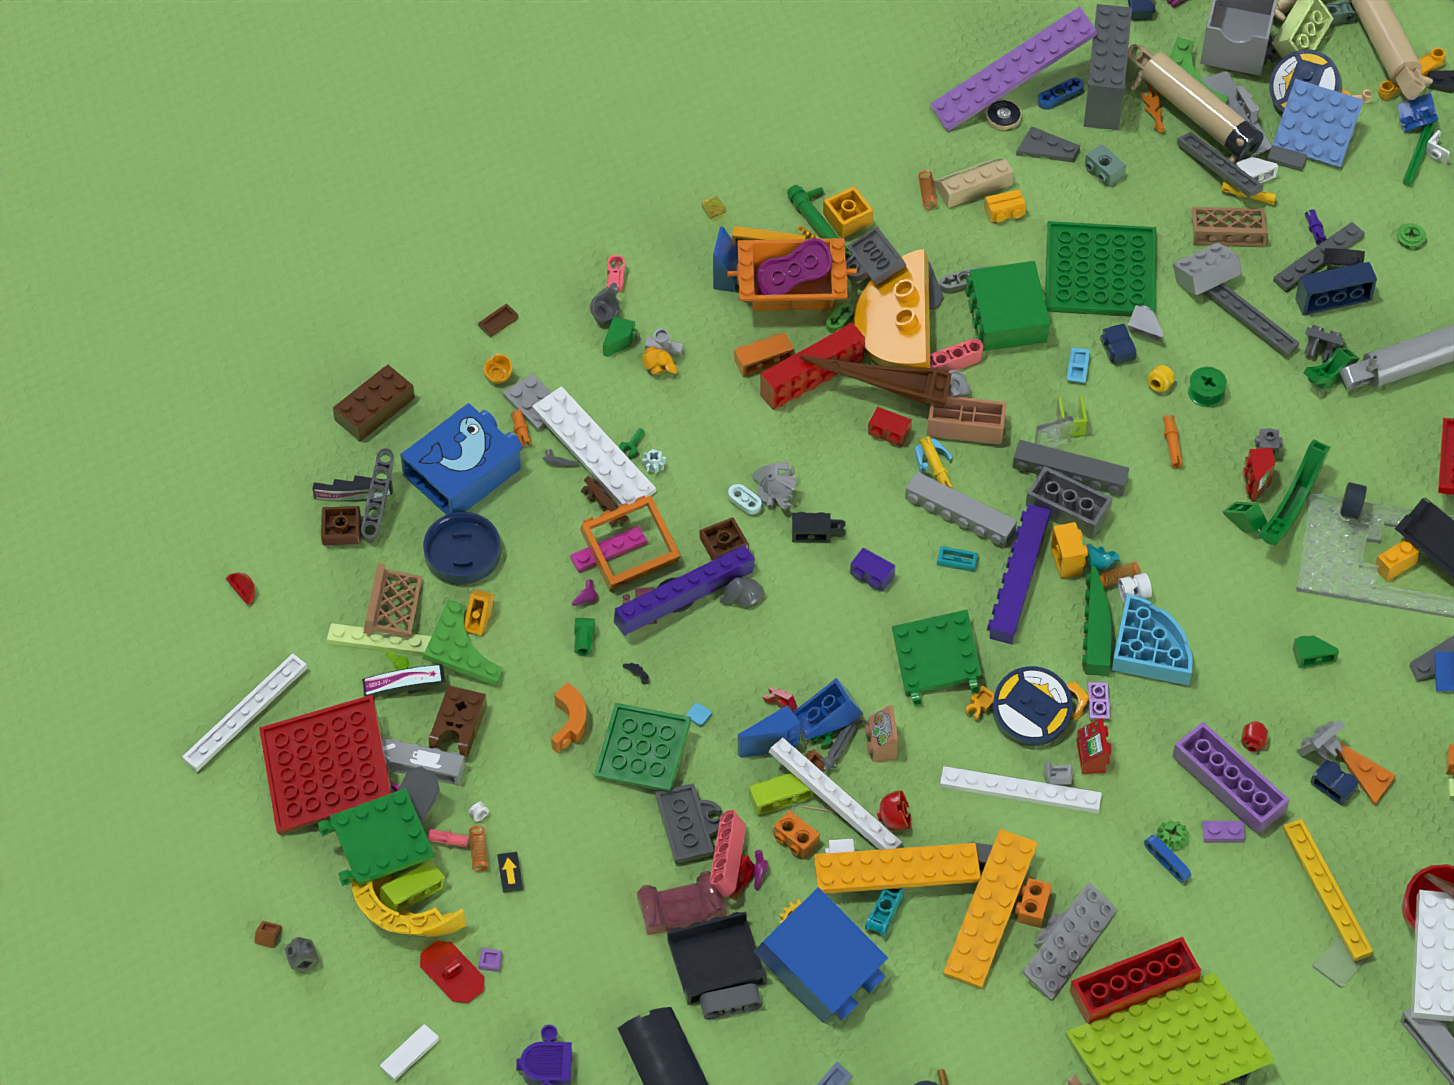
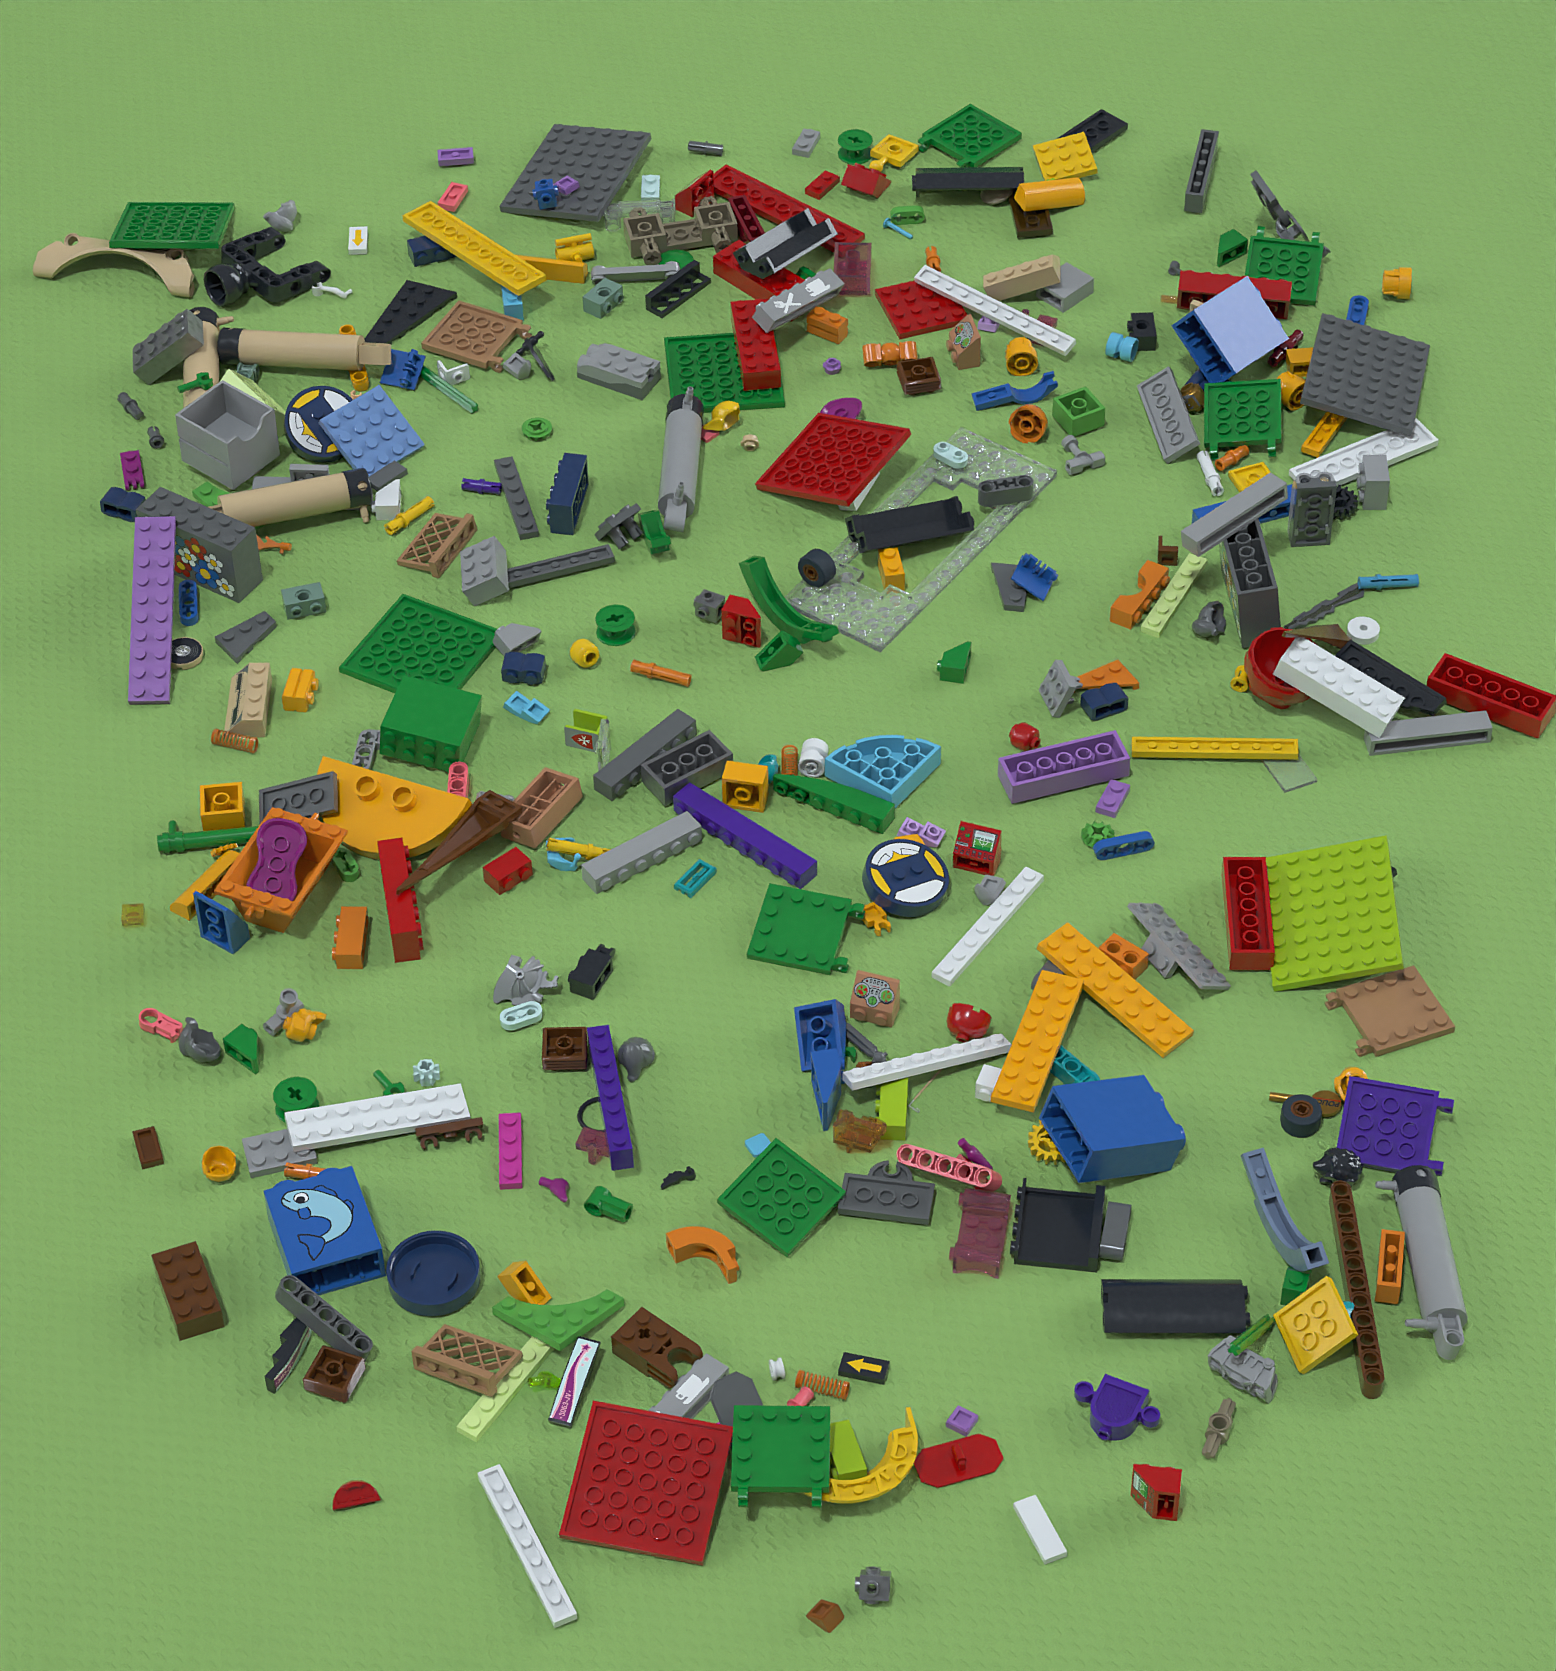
camera: 65 degrees left, 10 degrees down
(557, 461) = (369, 1157): dark grey bar -> none
(585, 389) = (294, 1095): none -> green piece
(639, 571) = (515, 1152): orange window -> none
(735, 774) = (857, 1132): none -> clear orange piece
(781, 698) = (784, 1067): red plate -> none
(799, 831) = (949, 1111): orange brick -> none
(872, 569) = (671, 944): dark purple brick -> none
(1220, 164) = (366, 518): dark grey plate -> none
(1343, 257) = (538, 474): black tyre -> none

